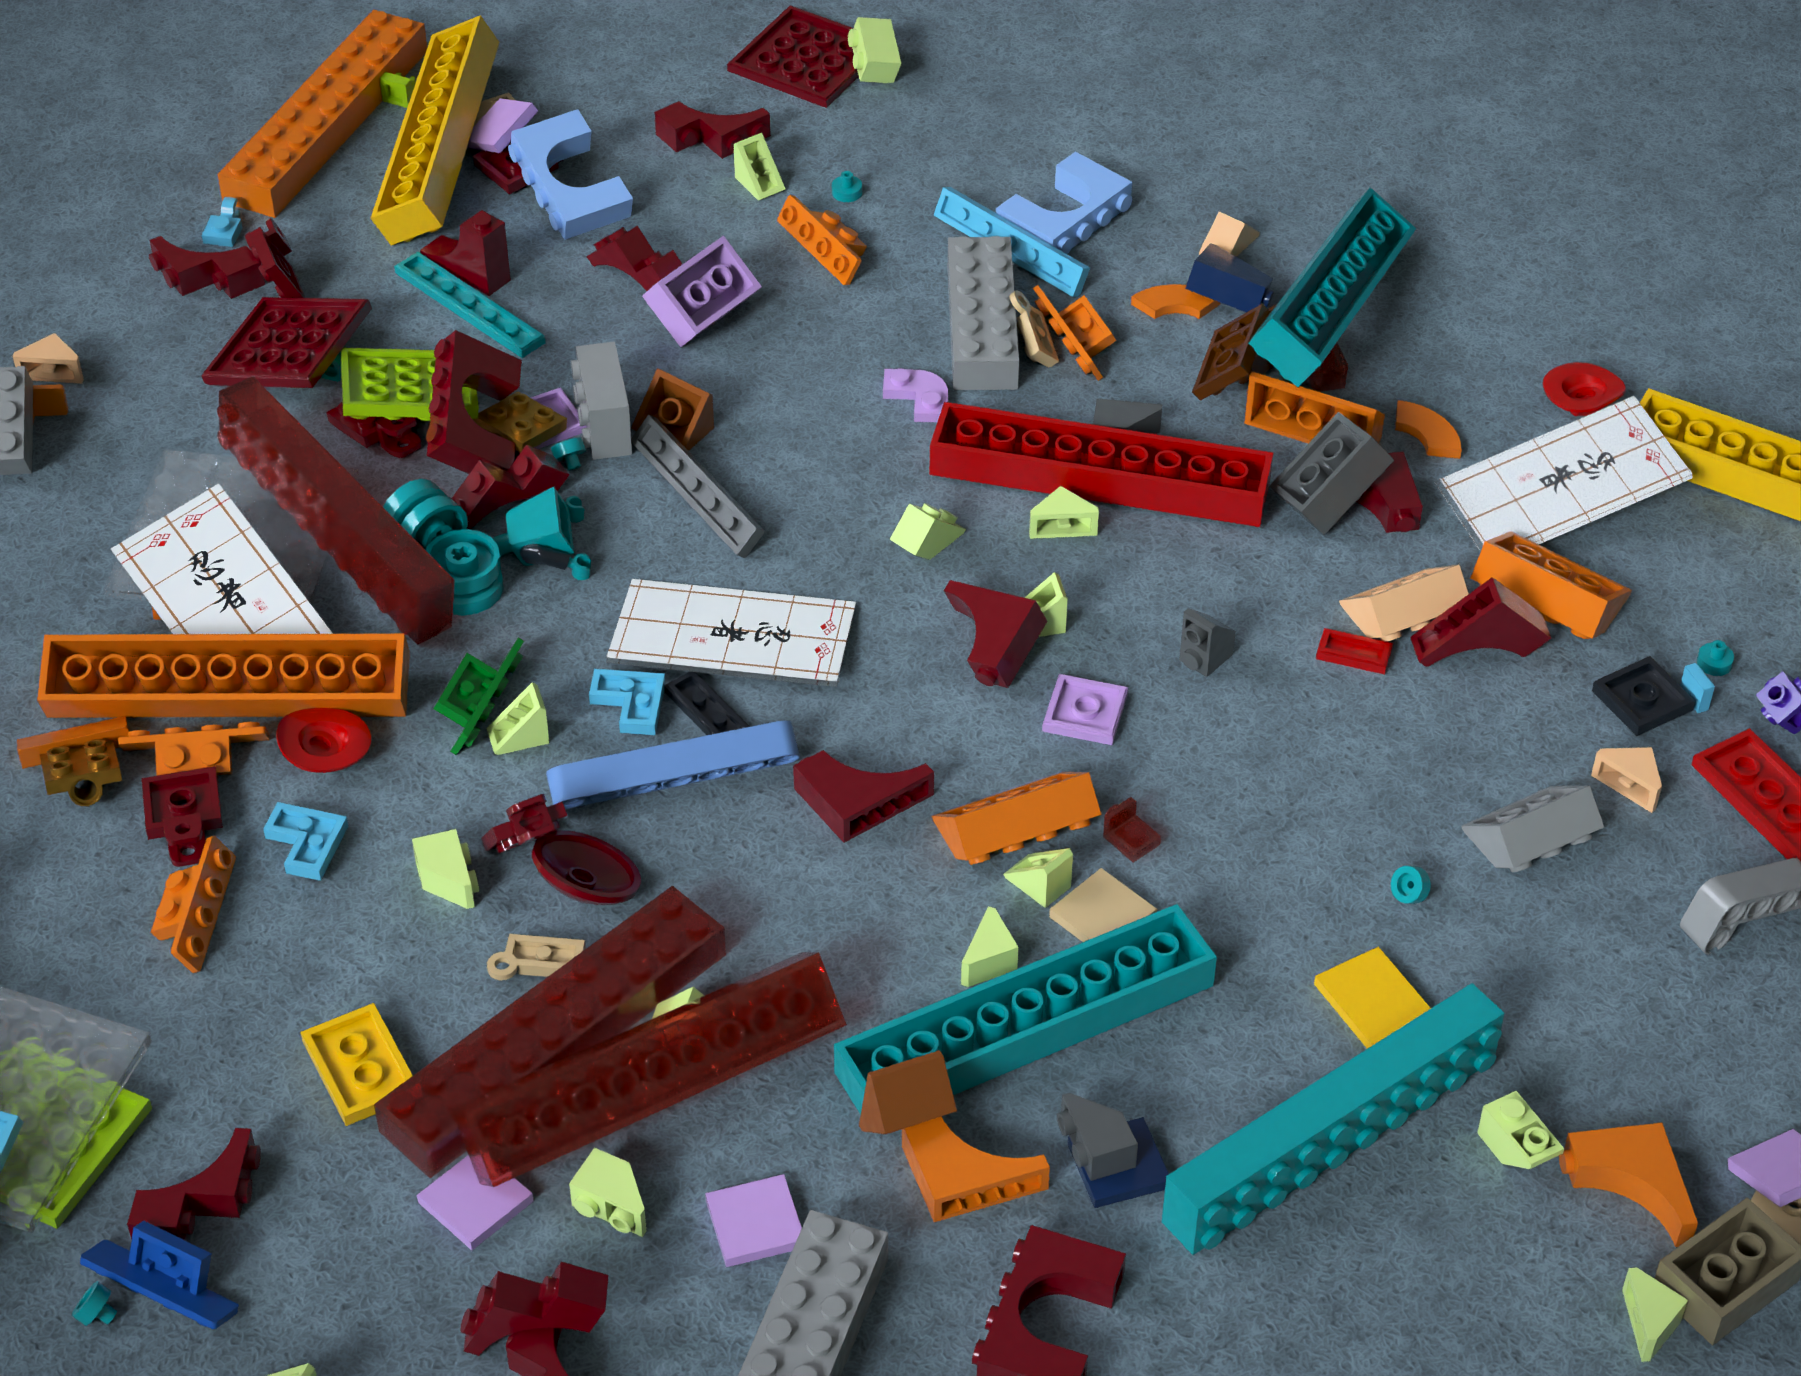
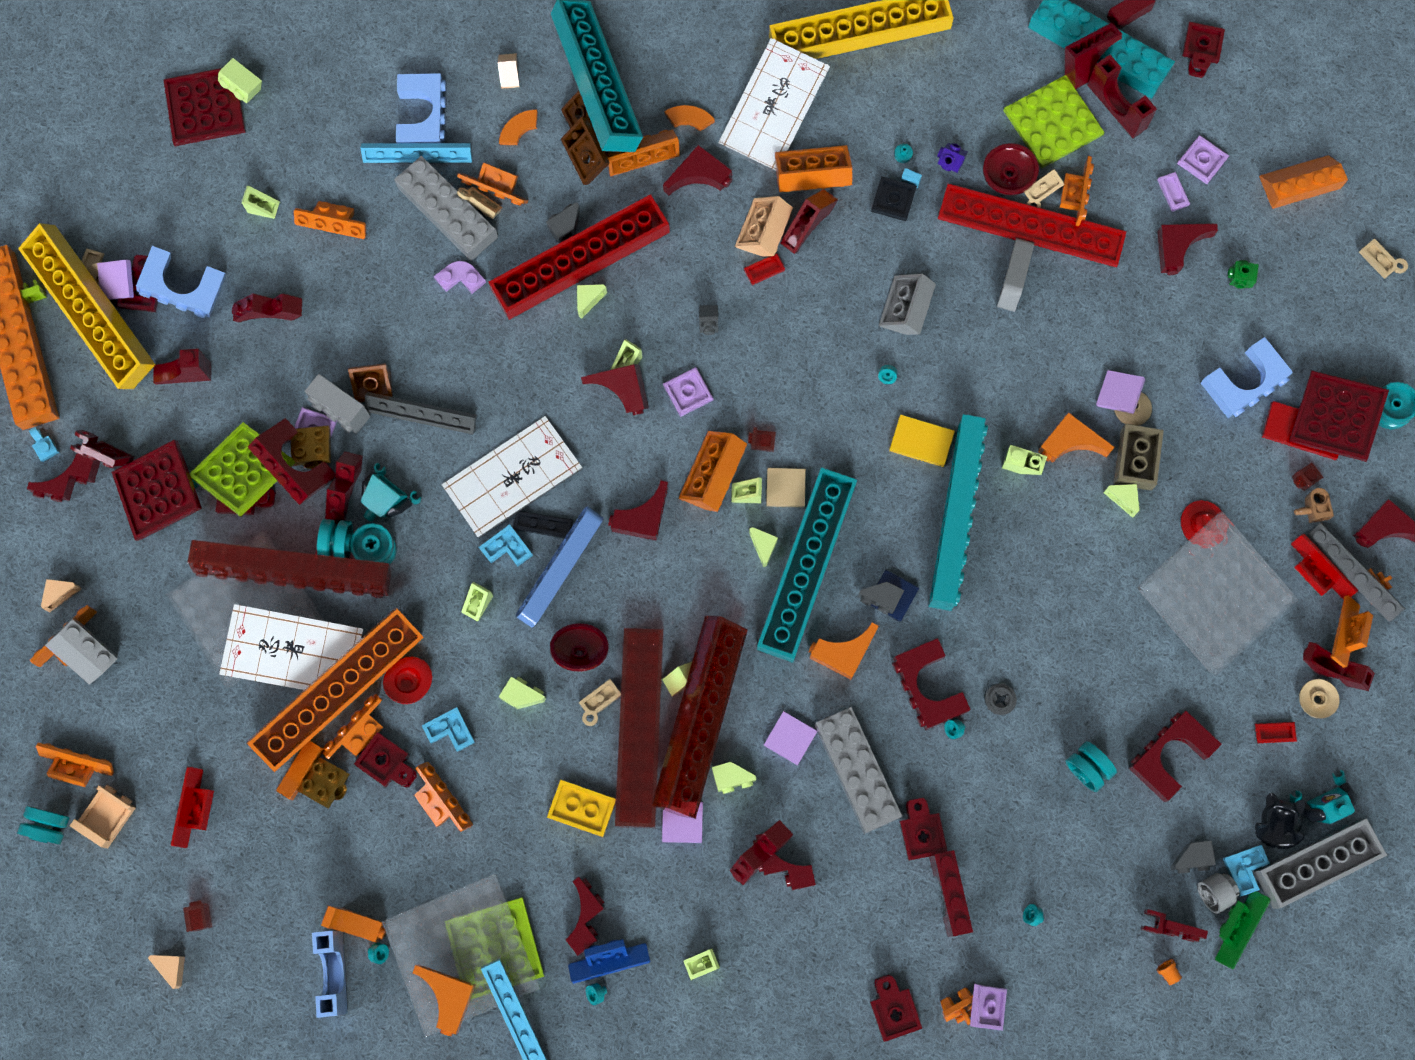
camera: 40 degrees left, 30 degrees up
(470, 304) = (209, 394): teal tile -> none
(470, 691) = (441, 602): green bracket -> none
(527, 823) = (539, 652): dark red plate -> none
(569, 451) = (346, 441): teal tile -> none
(684, 127) = (221, 192): dark red arch -> none
(701, 291) = (316, 304): lavender brick -> none
(847, 187) = (308, 178): teal tile -> none
(906, 1094) = (809, 647): dark orange slope -> none
(926, 530) = (541, 355): yellowish green slope -> none
(1229, 280) = (536, 99): dark blue slope -> none
(1331, 472) = (683, 185): dark grey slope -> none
(1582, 387) = (736, 41): red hat -> none
(1630, 773) = (923, 245): light nougat slope -> none

